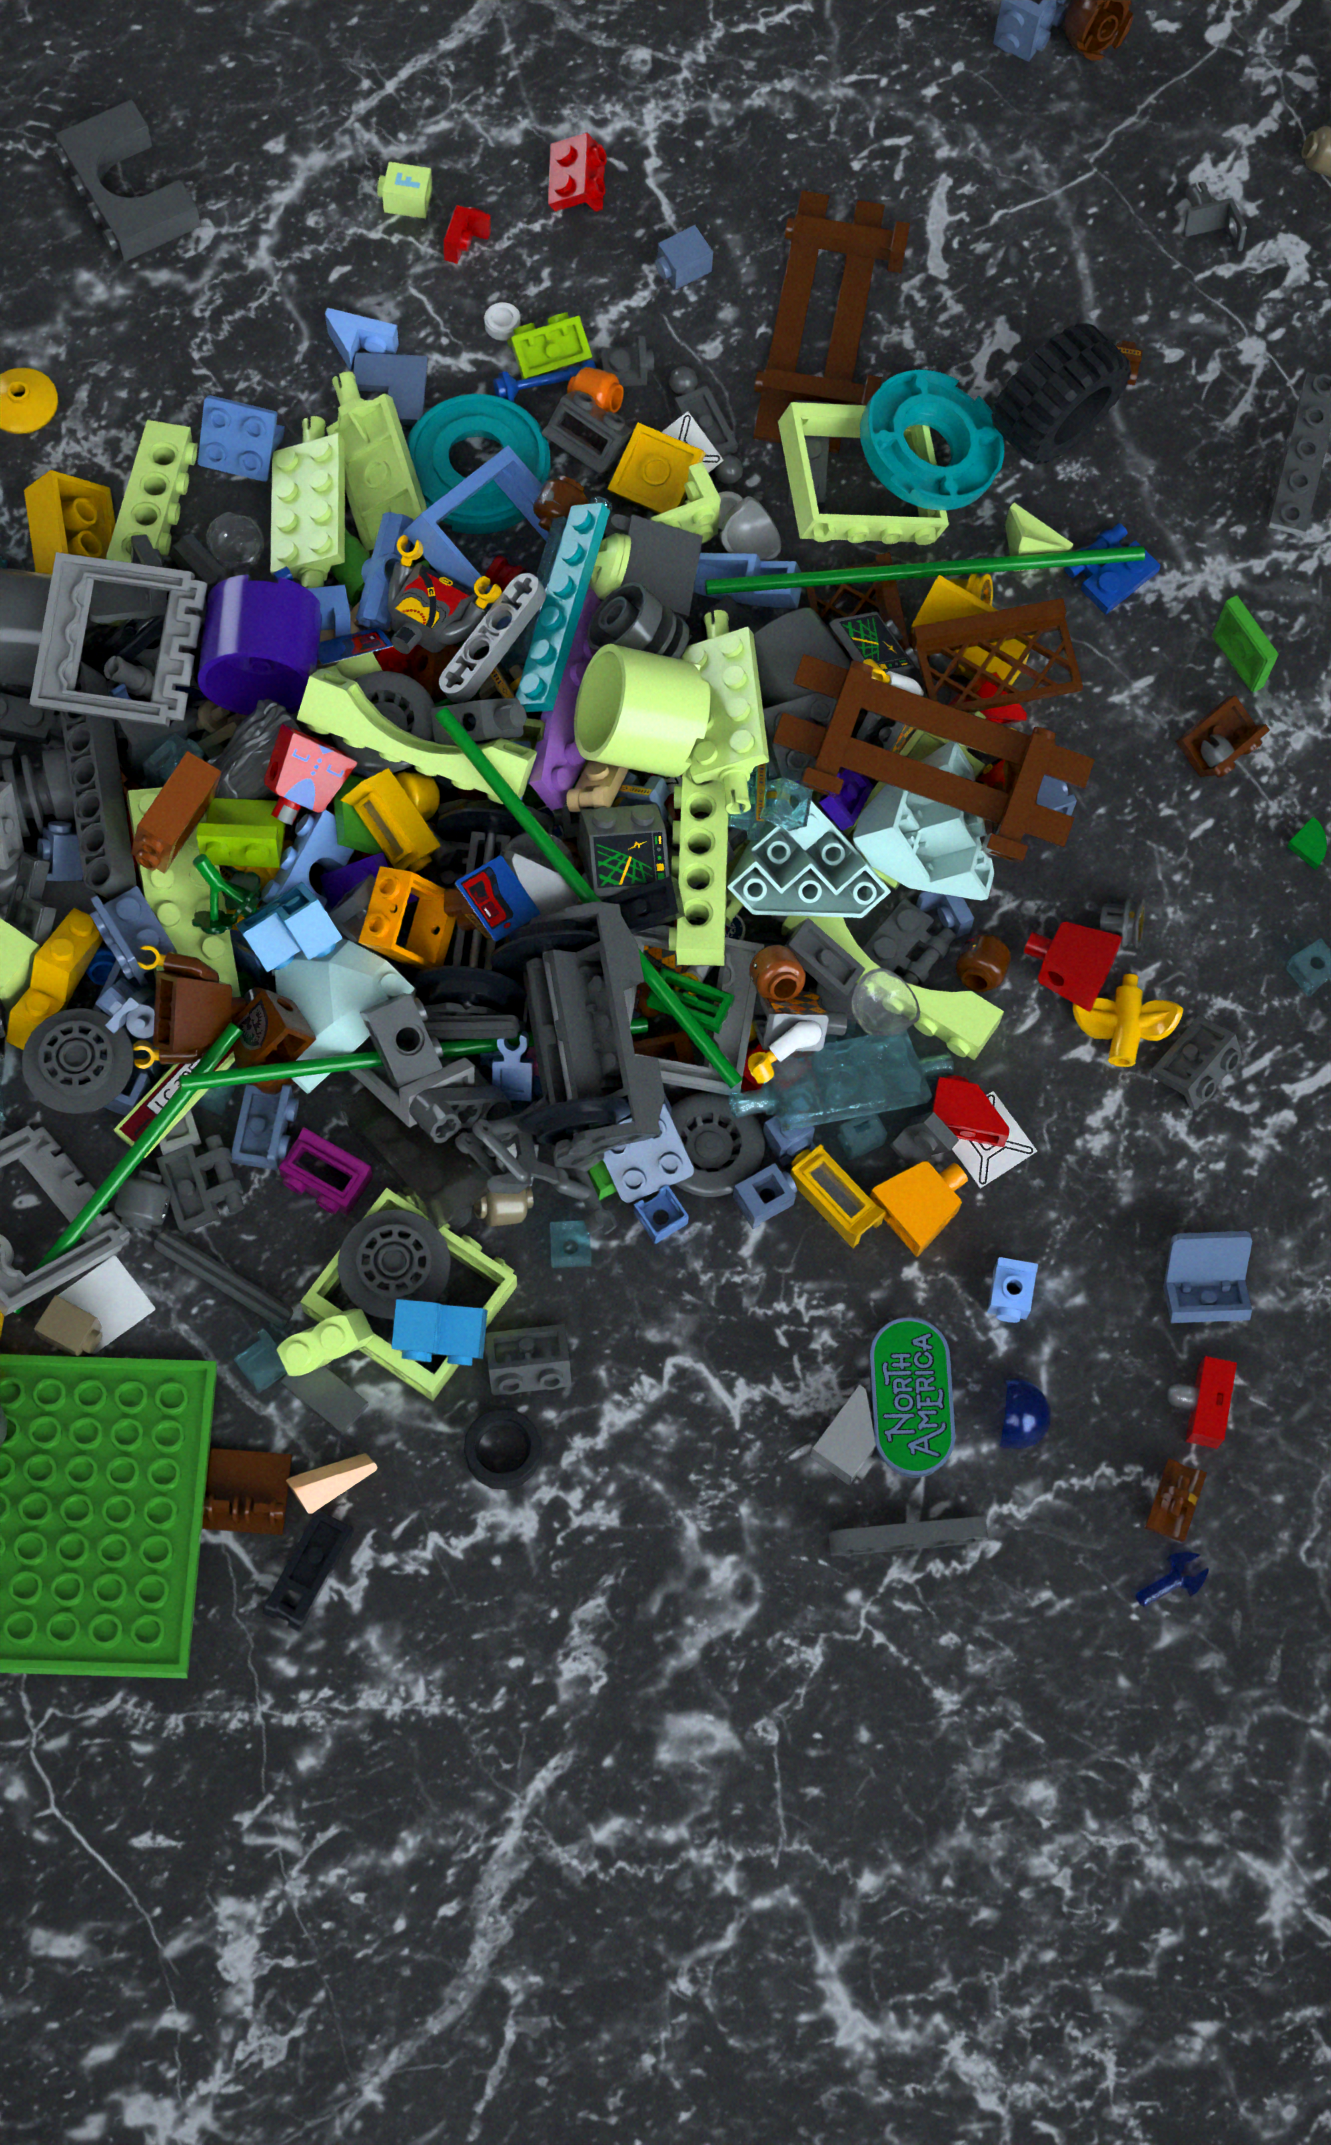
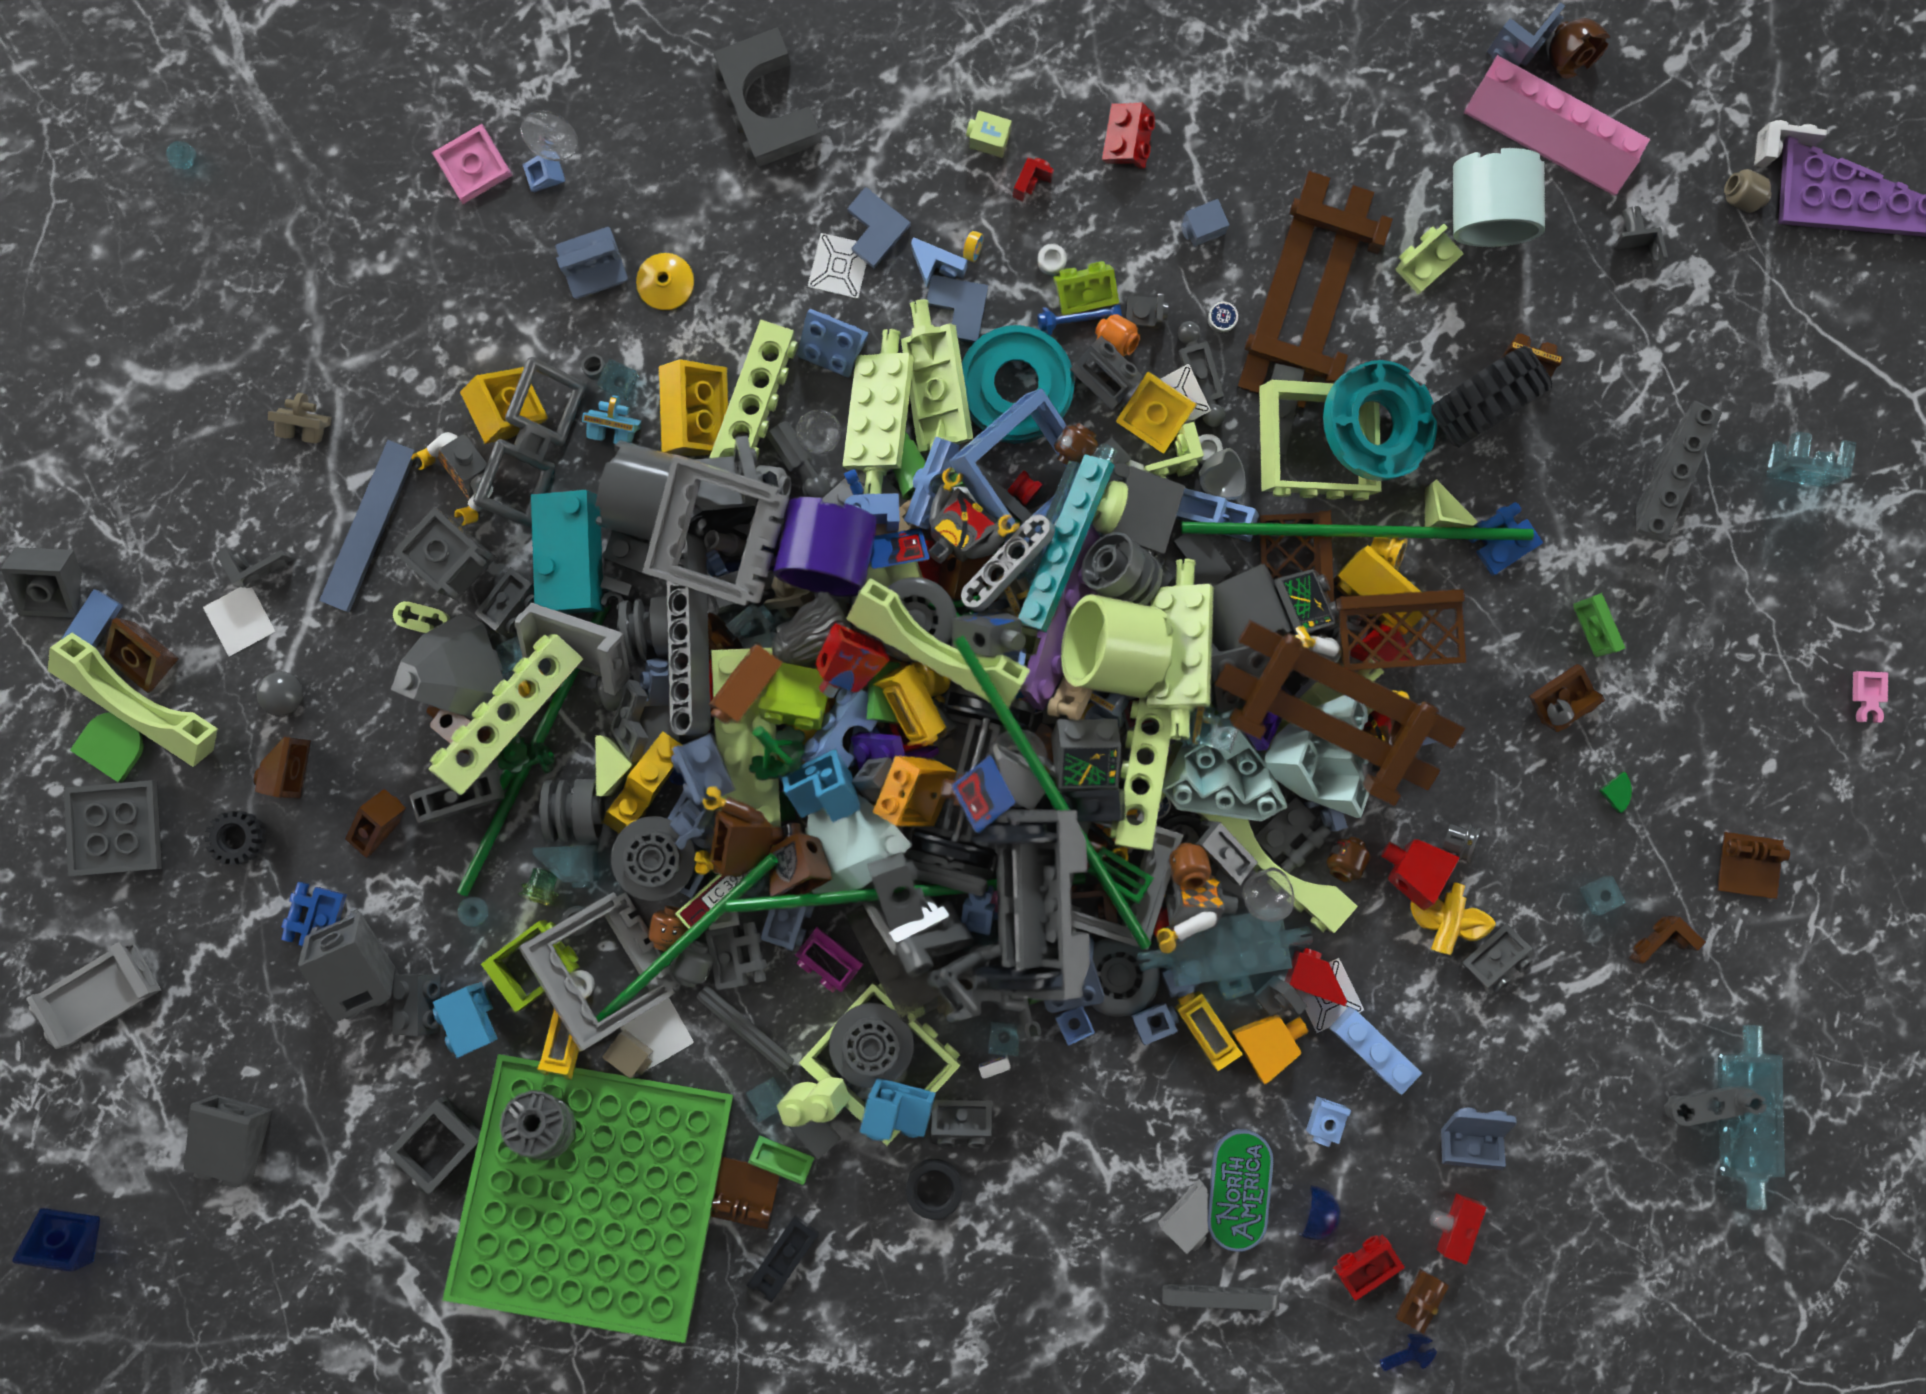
camera: 15 degrees right, 15 degrees up
(101, 1156) = (666, 928): none -> dark orange head
(238, 358) = (837, 267): none -> white sticker
(287, 308) = (883, 225): none -> sand blue tile
(290, 1440) = (781, 1160): none -> bright green tile
(325, 1483) = (799, 1200): light nougat slope -> none
(403, 313) = (973, 246): none -> yellow tile
(562, 1278) = (994, 1066): none -> white tile
(722, 360) = (1222, 317): none -> tile
(962, 268) = (1429, 260): none -> yellowish green bracket
(1031, 183) = (1498, 198): none -> light aqua brick
(1037, 1174) = (1375, 1050): none -> light blue arch
(1088, 109) = (1557, 126): none -> bright pink slope
(1097, 1469) = (1368, 1266): none -> red bracket

